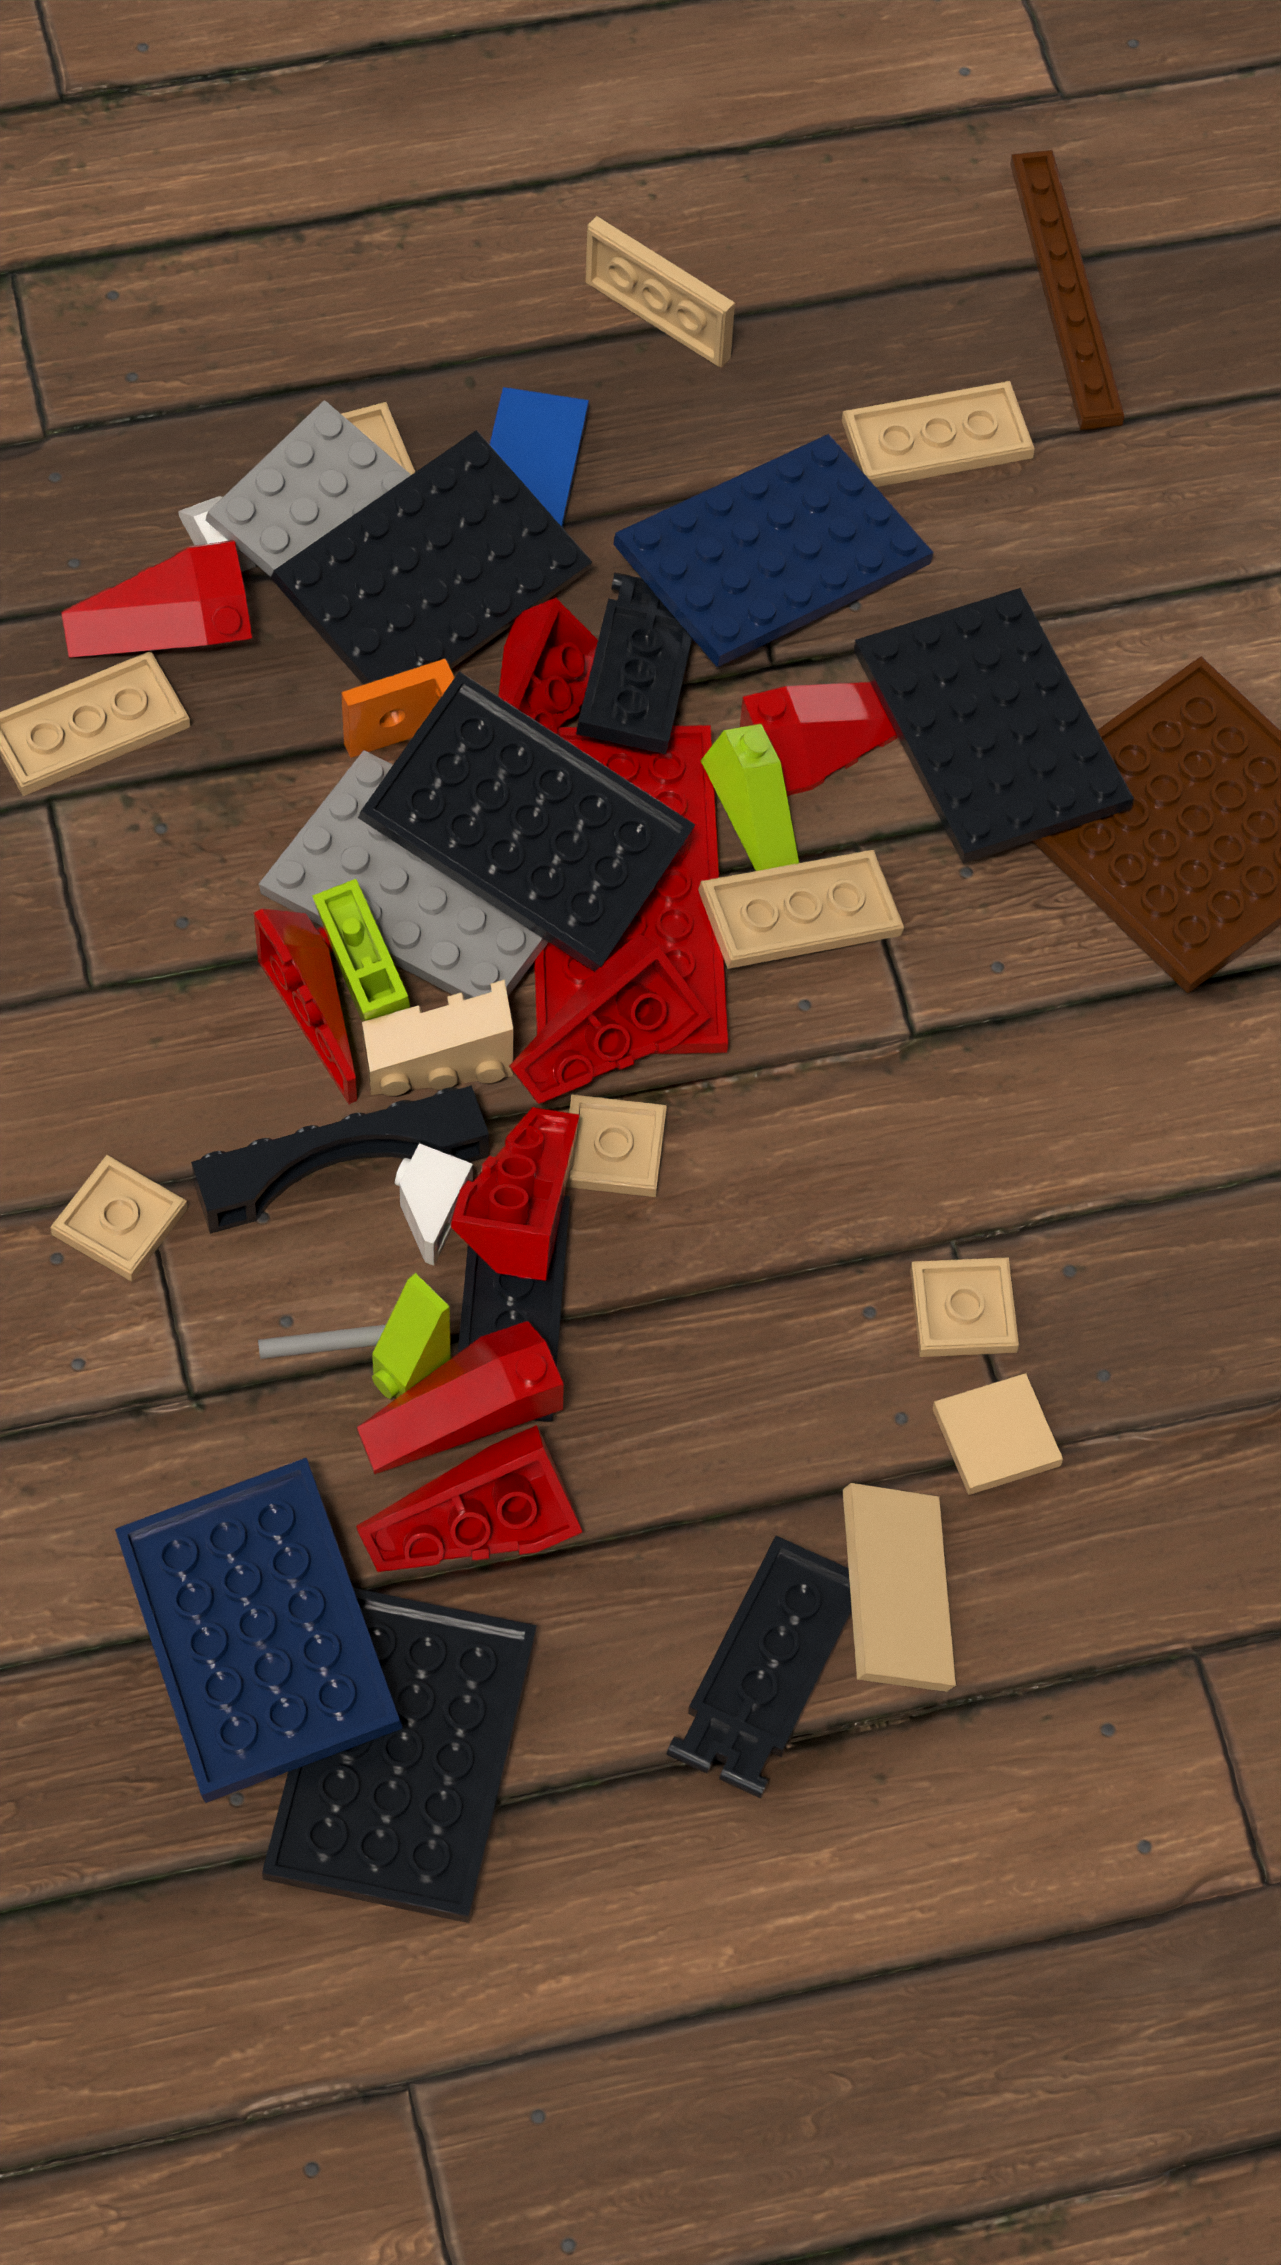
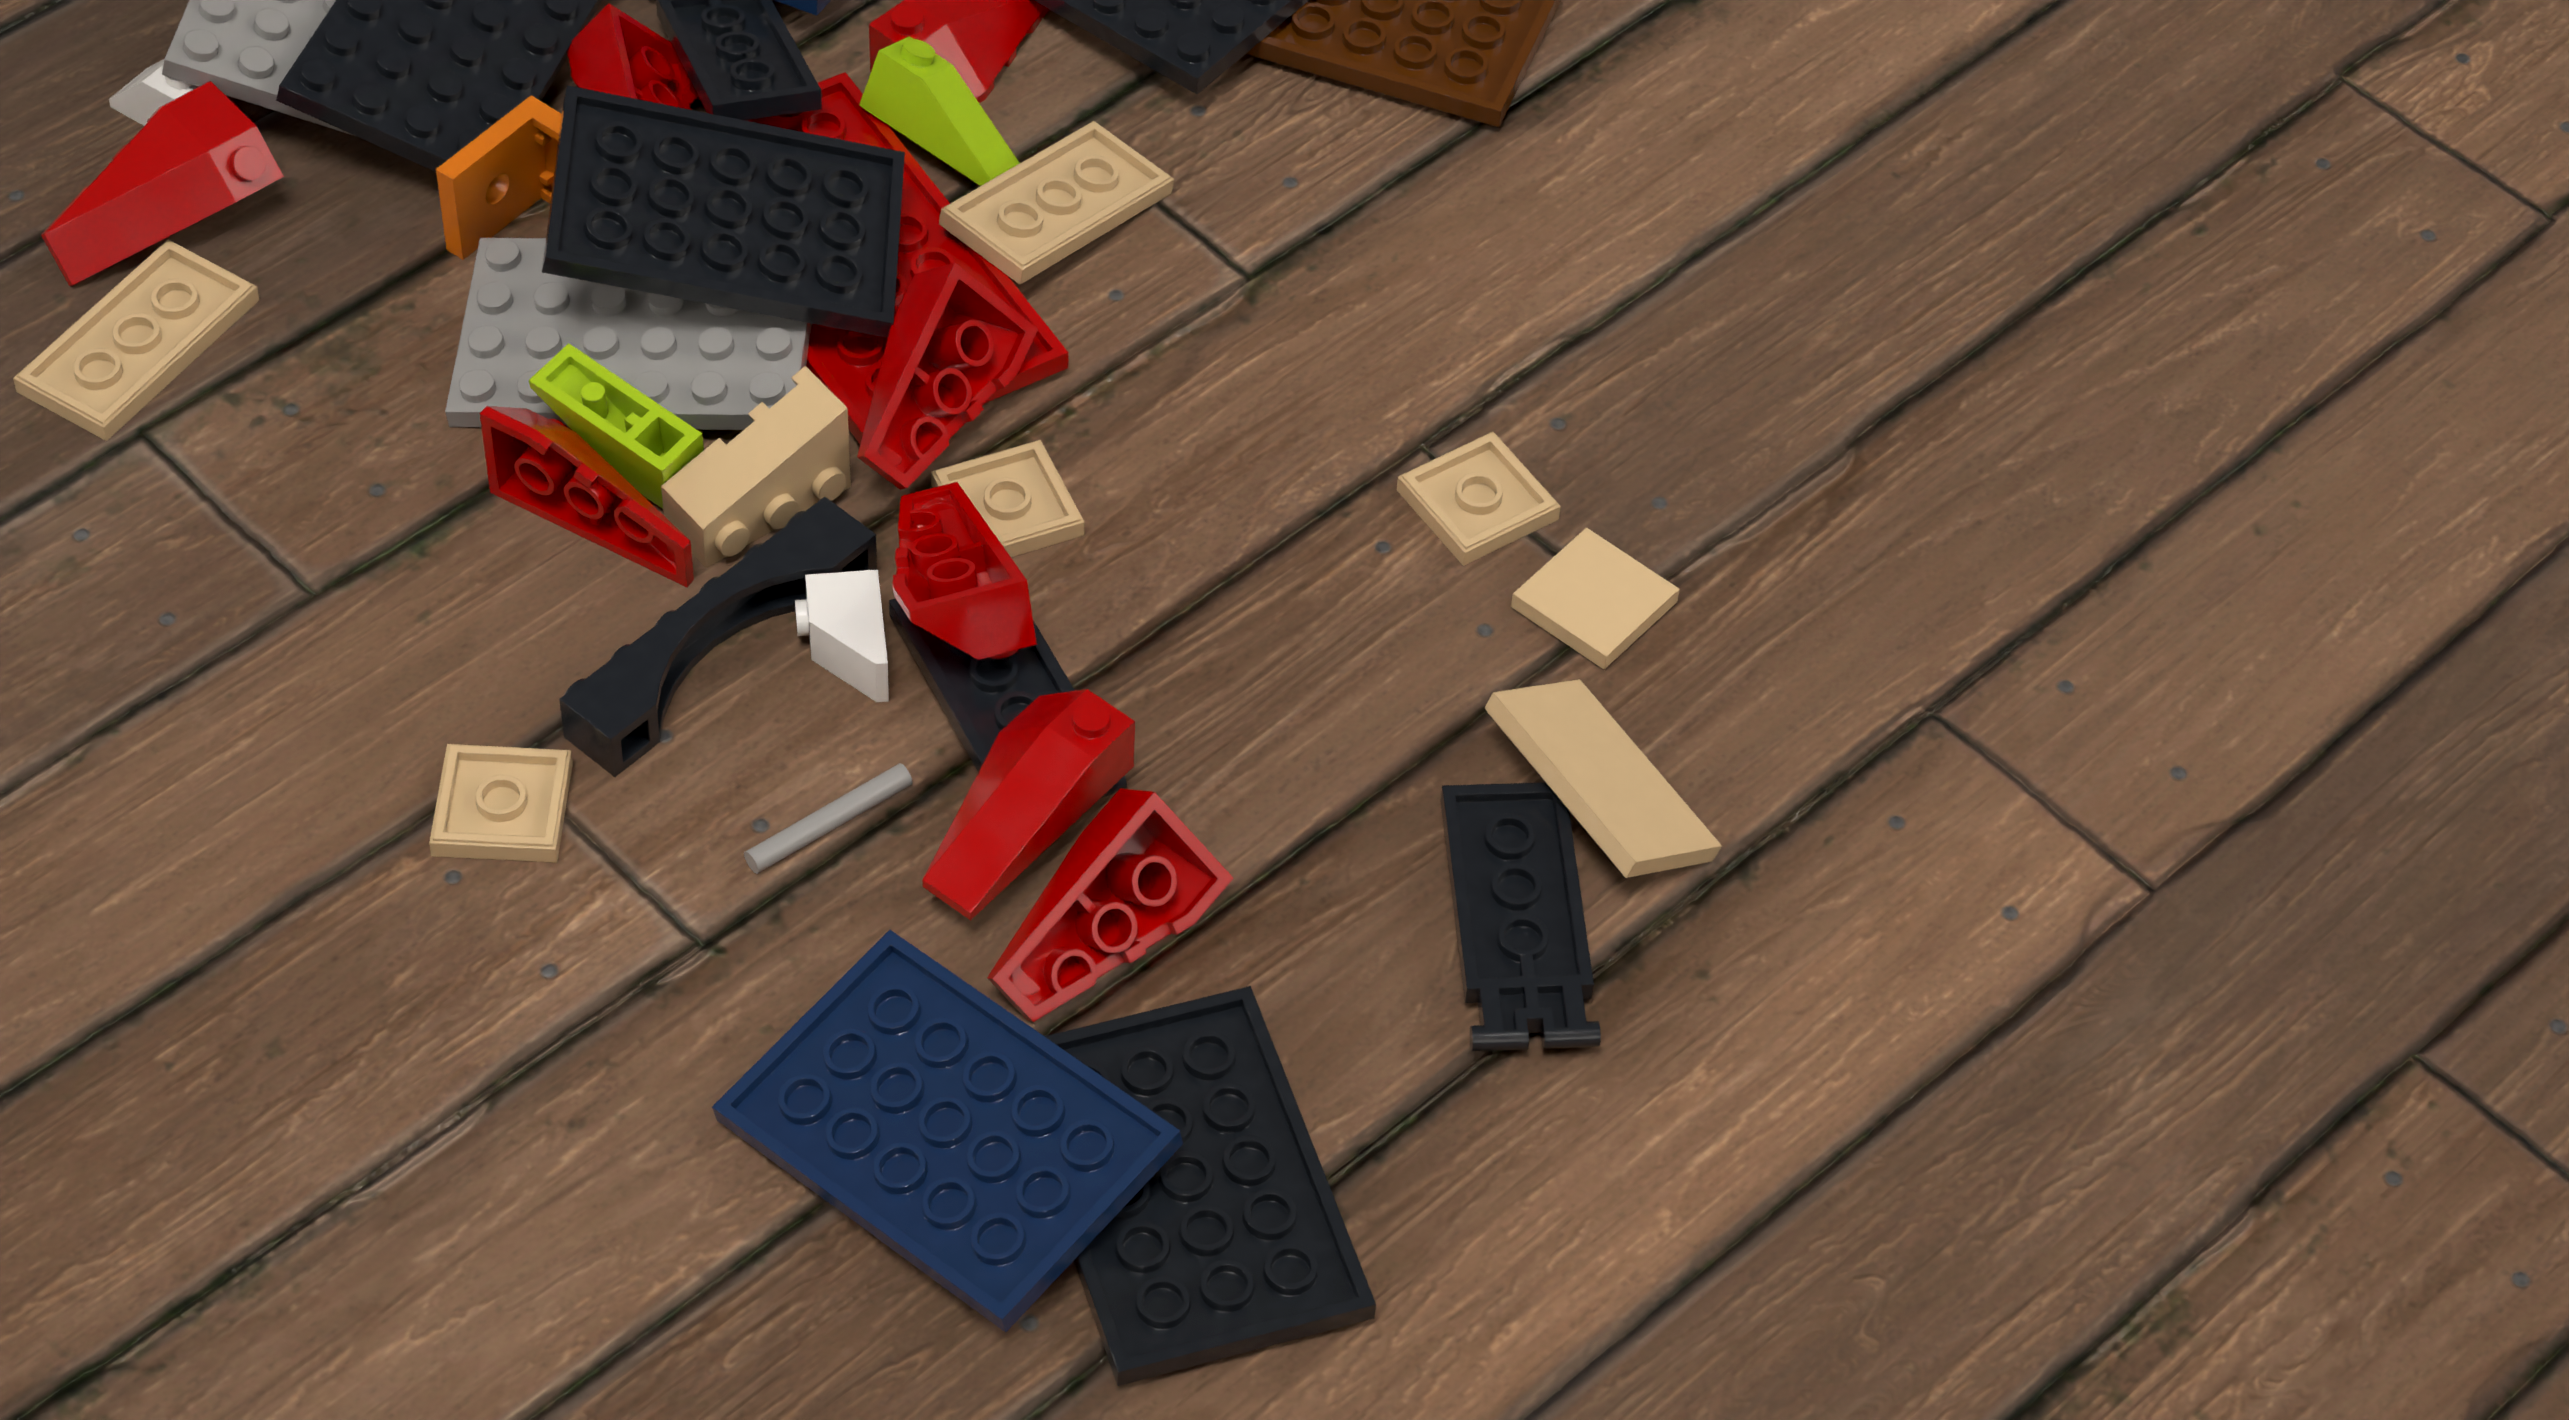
camera: 30 degrees left, 10 degrees down
(413, 1339) = (935, 754): lime slope -> none

